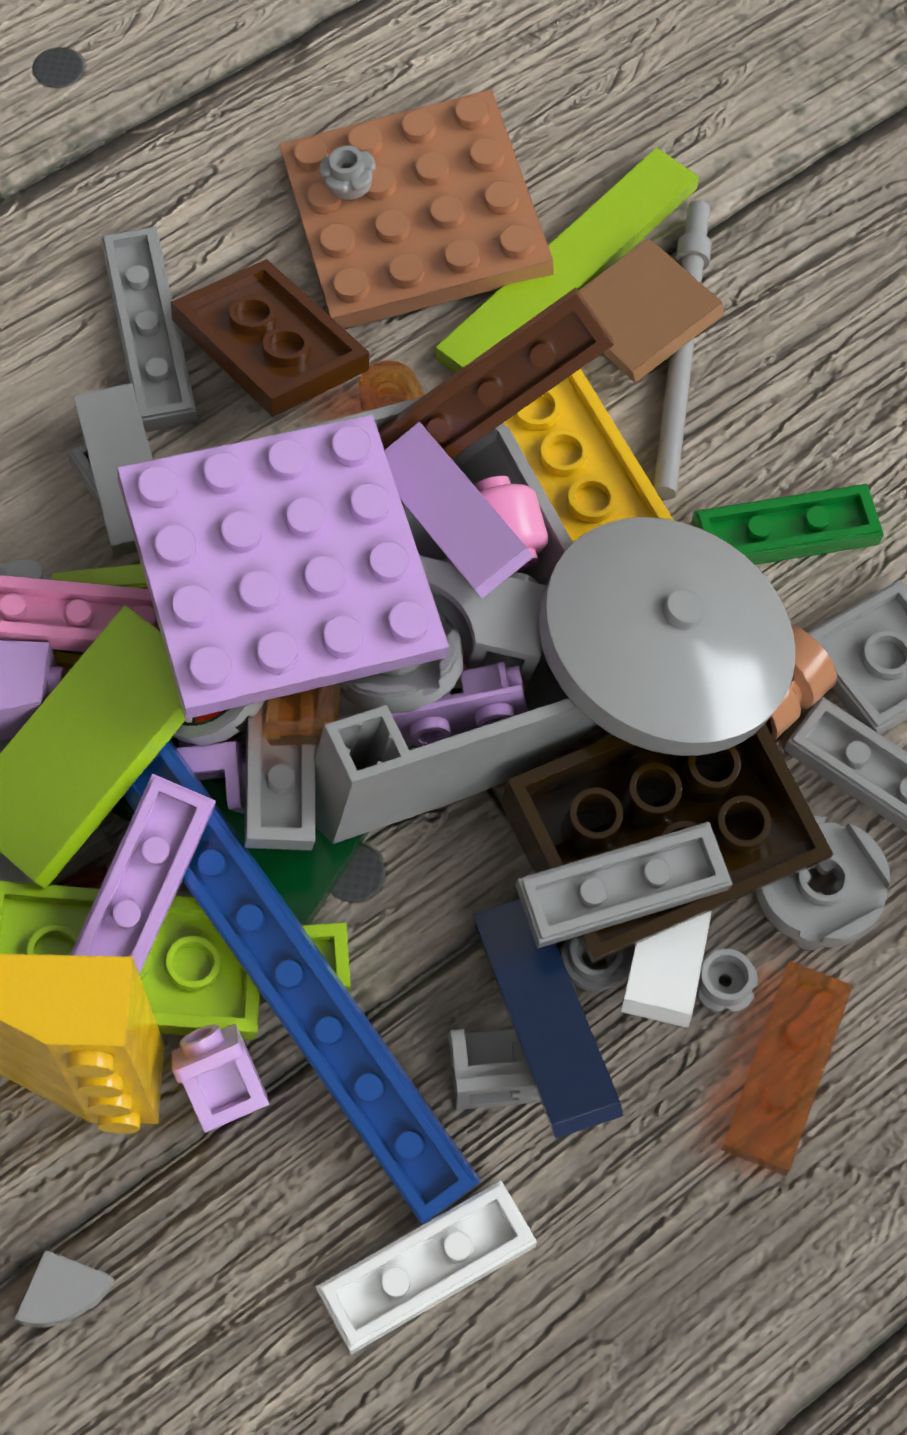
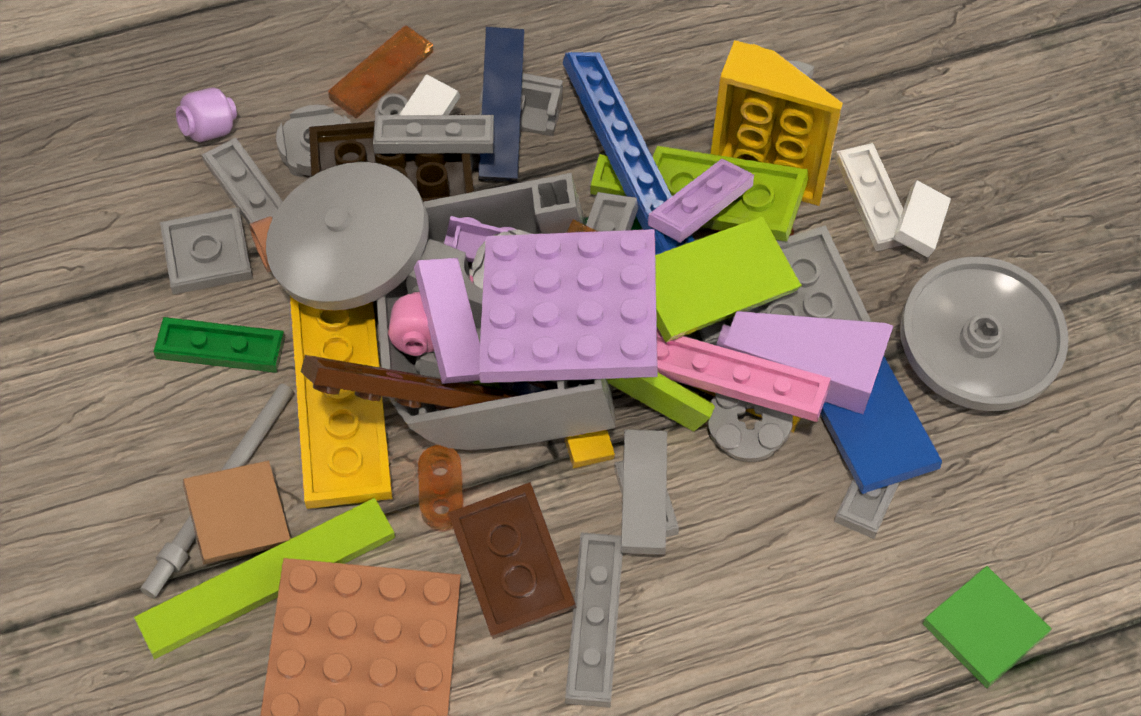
camera: 160 degrees left, 5 degrees down
(218, 1075) = (685, 129): lavender bracket -> none
(348, 172) = (405, 683): light grey plate -> none
(425, 1267) = (608, 38): white tile -> none

